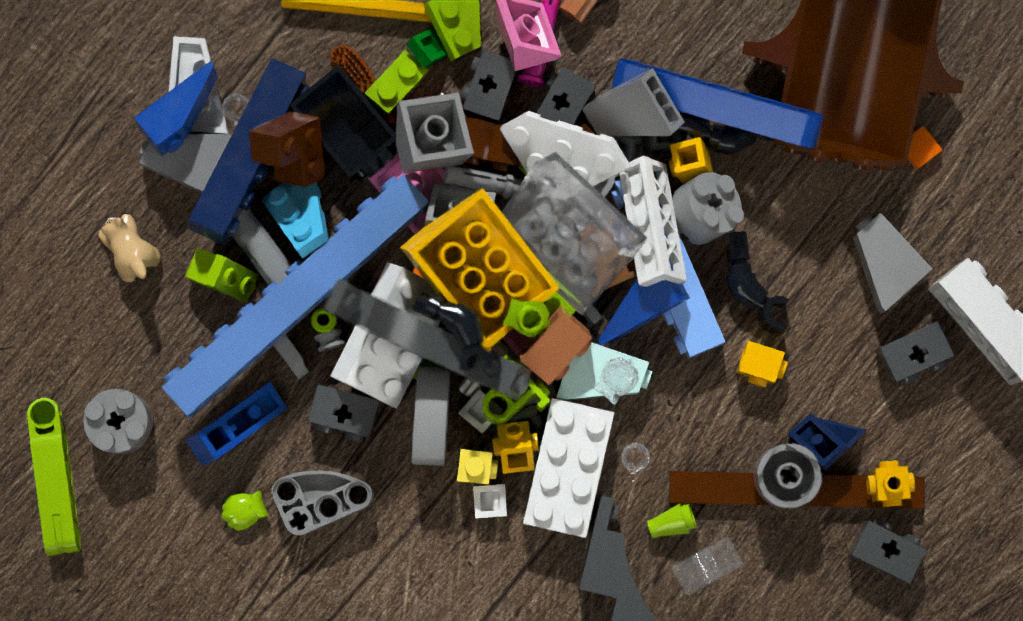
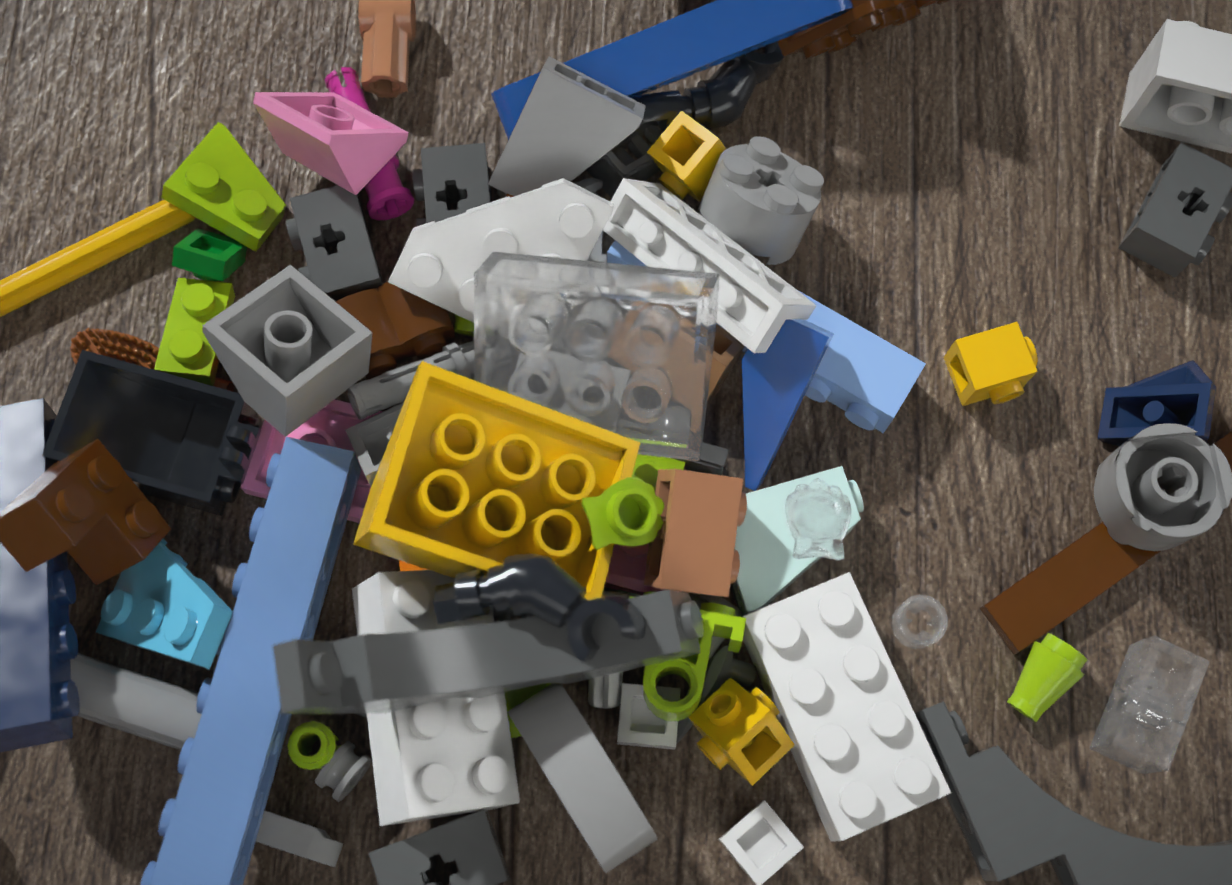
camera: 40 degrees left, 10 degrees down
(222, 275) = (103, 788): lime pin -> none
(476, 467) = (705, 805): light yellow brick -> none
(746, 288) = (897, 279): black piece -> none
(887, 261) = (1048, 119): light grey slope -> none

